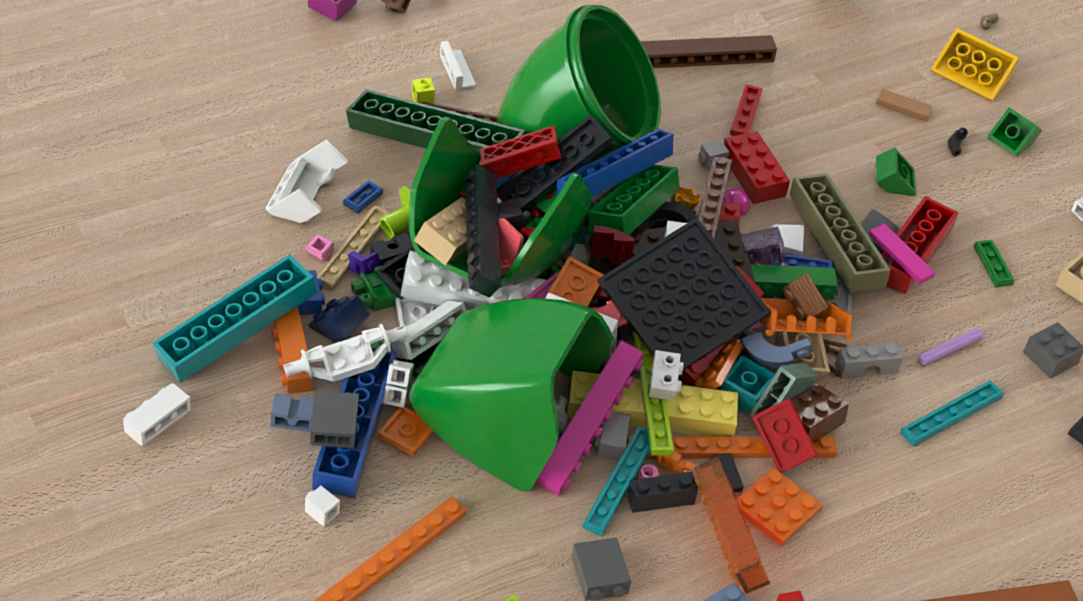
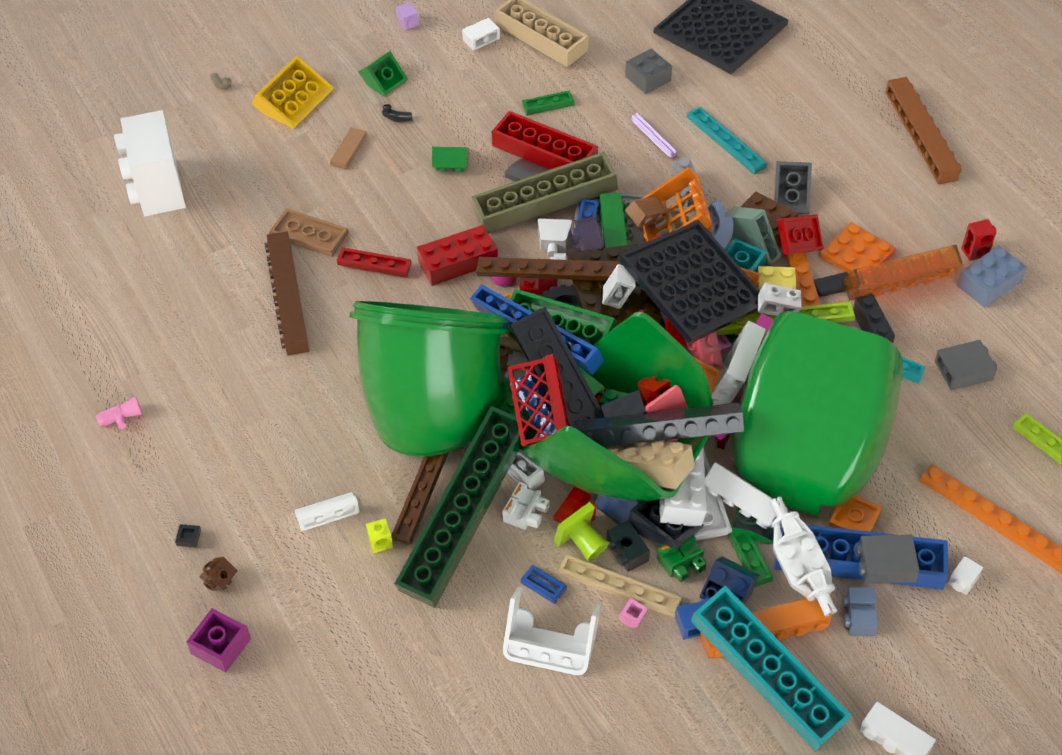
camera: 85 degrees left, 5 degrees up
(360, 263) = (654, 571): dark purple bracket -> none
(398, 383) = (815, 513): white hips -> none
(711, 150) = (442, 286): light grey brick -> none
(786, 73) = (310, 232): none -> medium nougat tile
(872, 456) = (793, 185): none -> dark grey slope
(902, 254) = (572, 148): dark pink tile -> none

